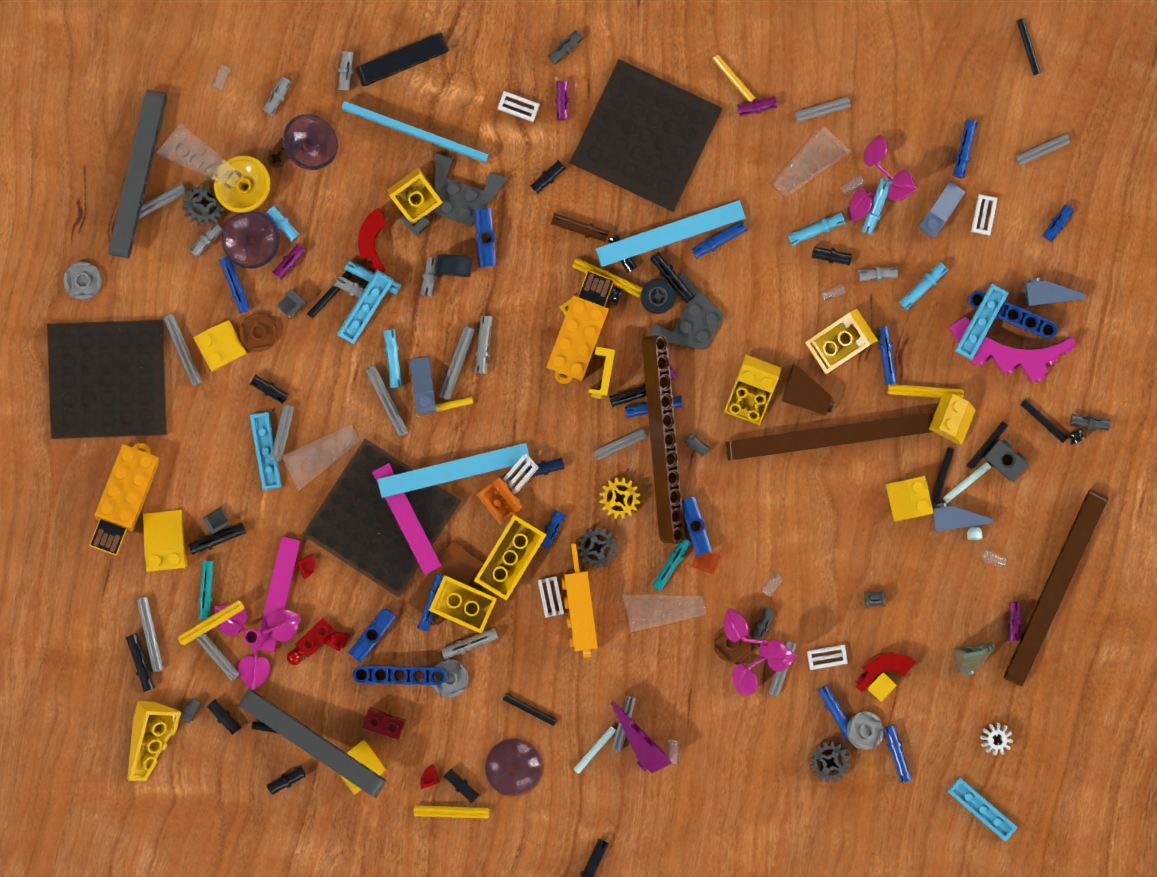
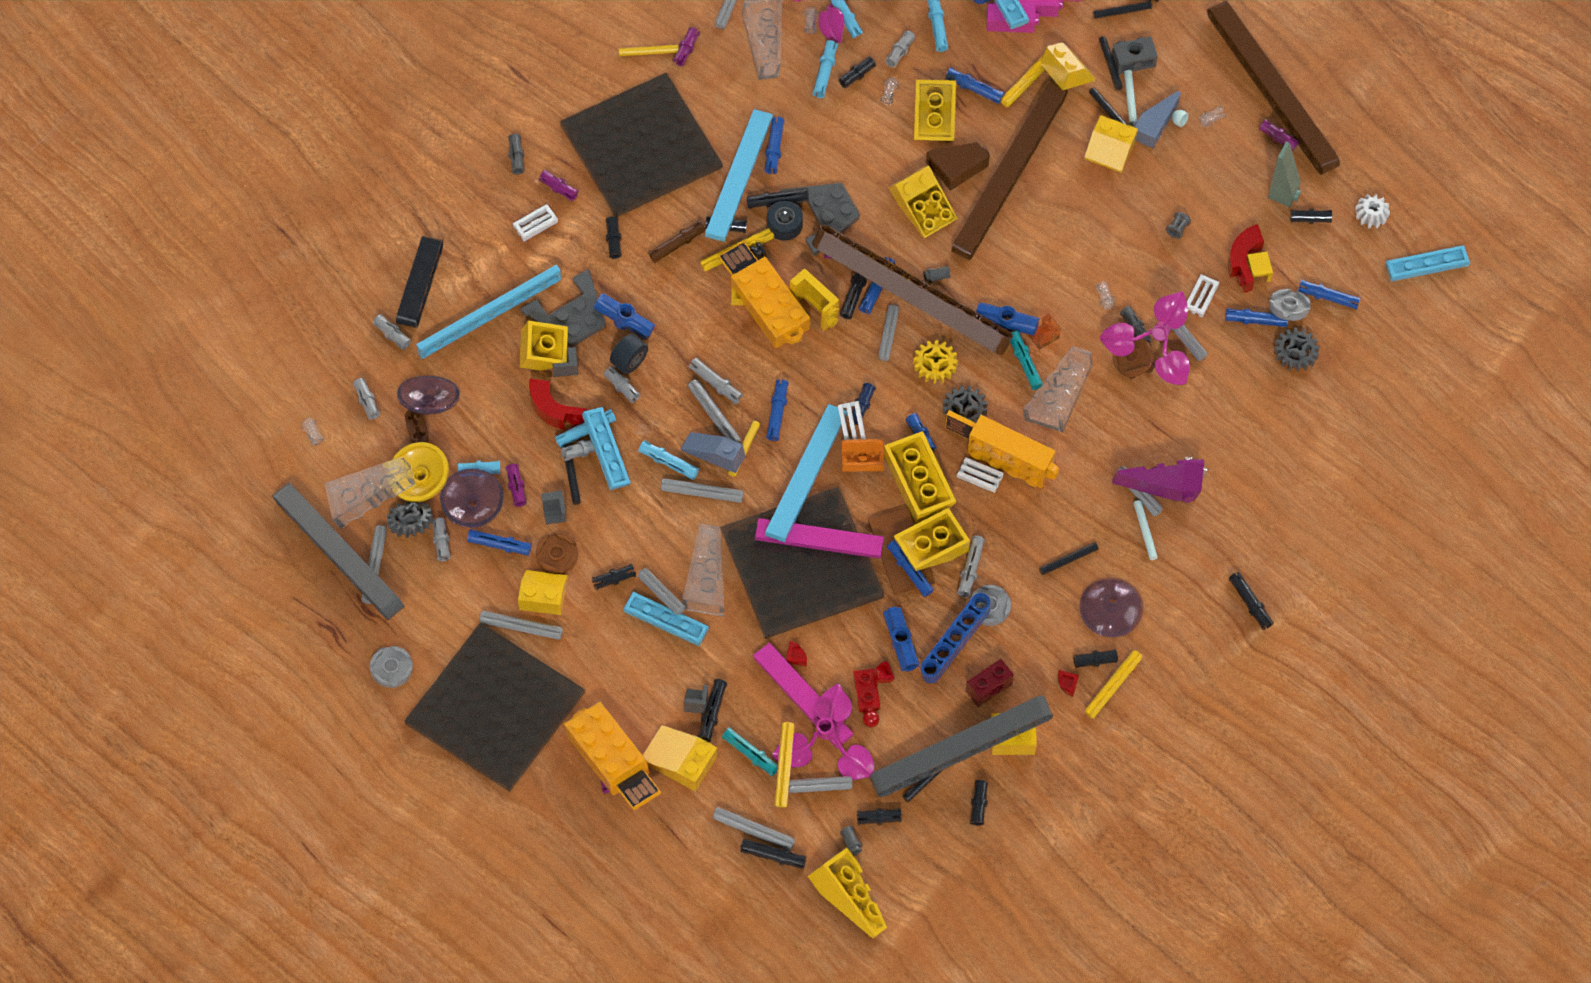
camera: 55 degrees left, 25 degrees down
(493, 408) = (778, 402): none -> blue pin
(958, 694) = (1311, 216): none -> black pin

